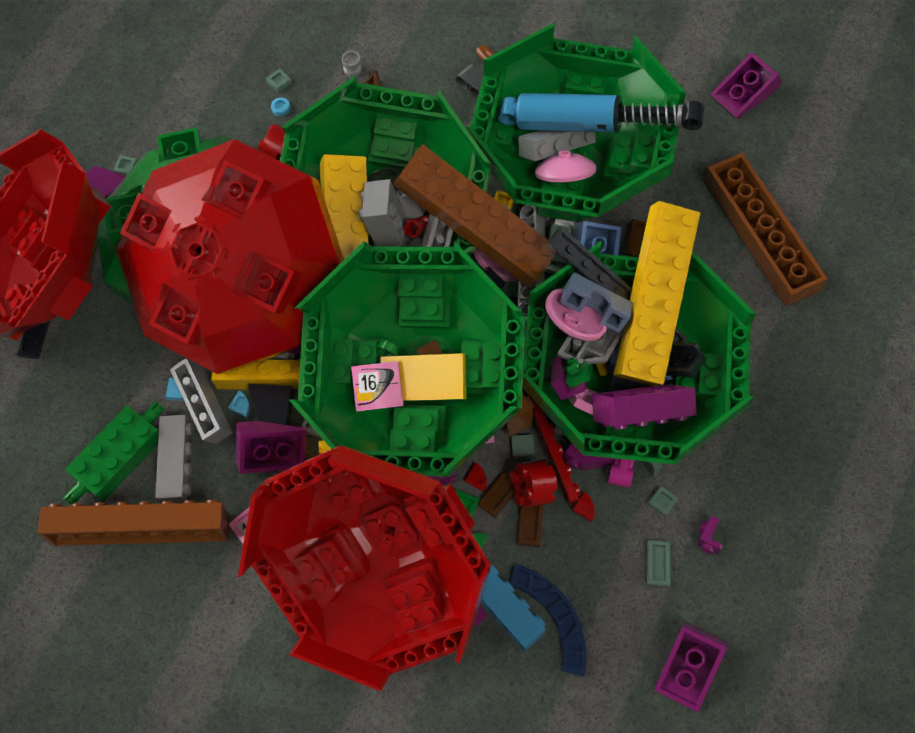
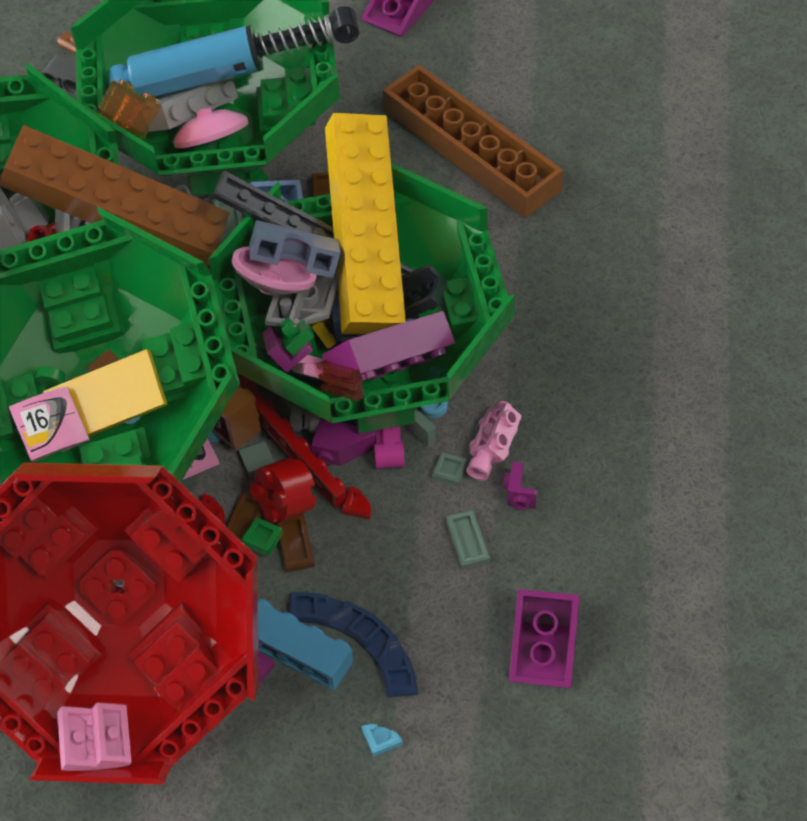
camera: 20 degrees left, 10 degrees down
(342, 638) = (94, 737): none -> bright pink slope
(507, 514) = (262, 537): none -> green tile
(508, 142) = (129, 108): none -> clear orange brick
(546, 703) = (381, 739): none -> medium azure tile
(599, 422) = (340, 385): none -> clear red tile
(702, 489) = (493, 439): none -> bright pink brick

